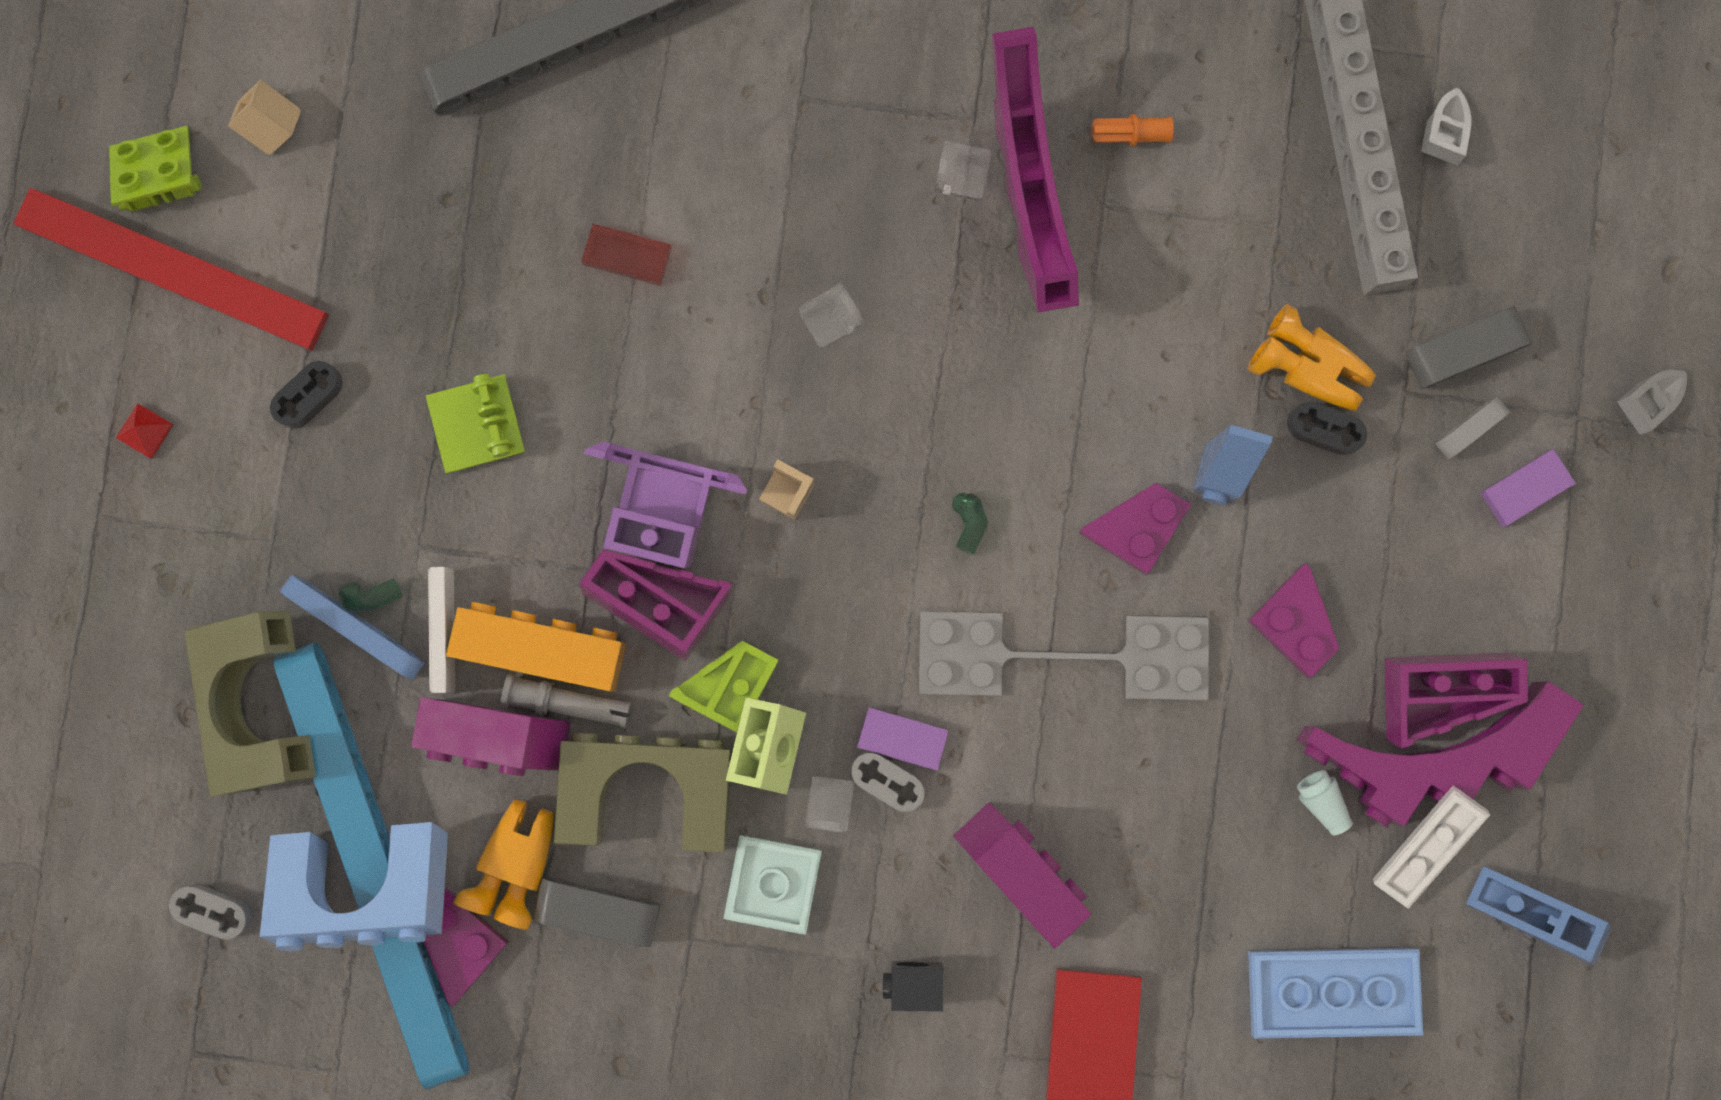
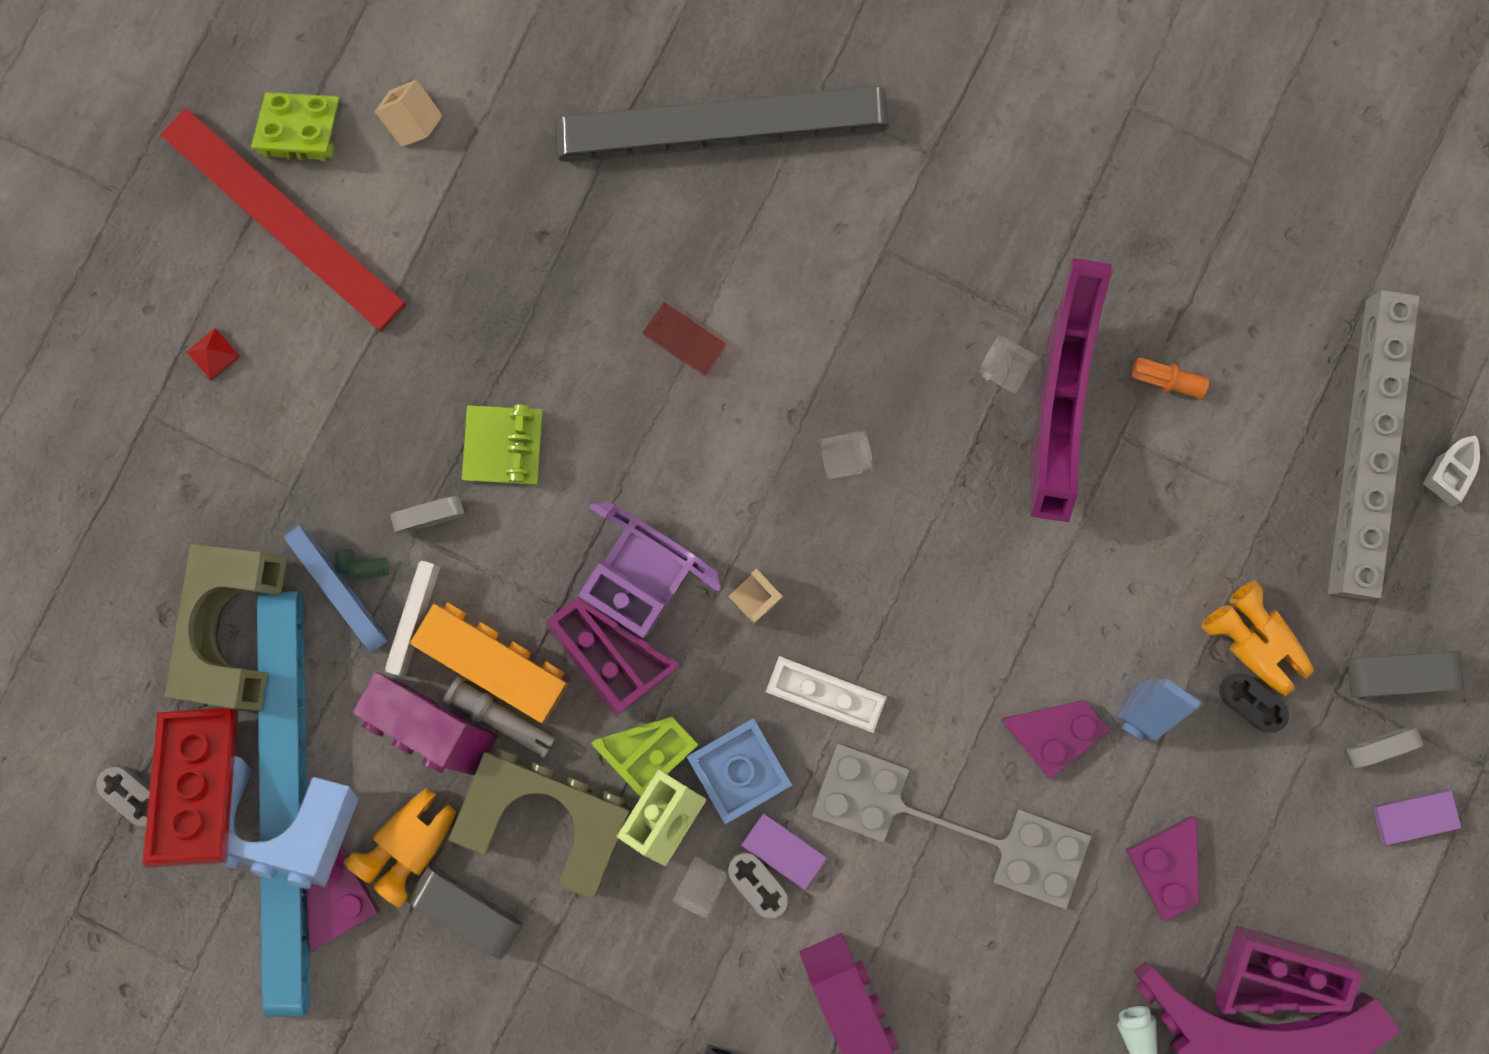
camera: 20 degrees right, 0 degrees up
(268, 879) = (191, 788): none -> red tile
(312, 402) = (360, 361): black beam -> none
(421, 520) = (427, 514): none -> light grey beam
(772, 884) = (626, 940): light aqua tile -> none
(829, 672) = (739, 771): none -> medium blue plate
(892, 566) = (826, 694): none -> white tile
(974, 518) = (912, 678): clear green arm -> none

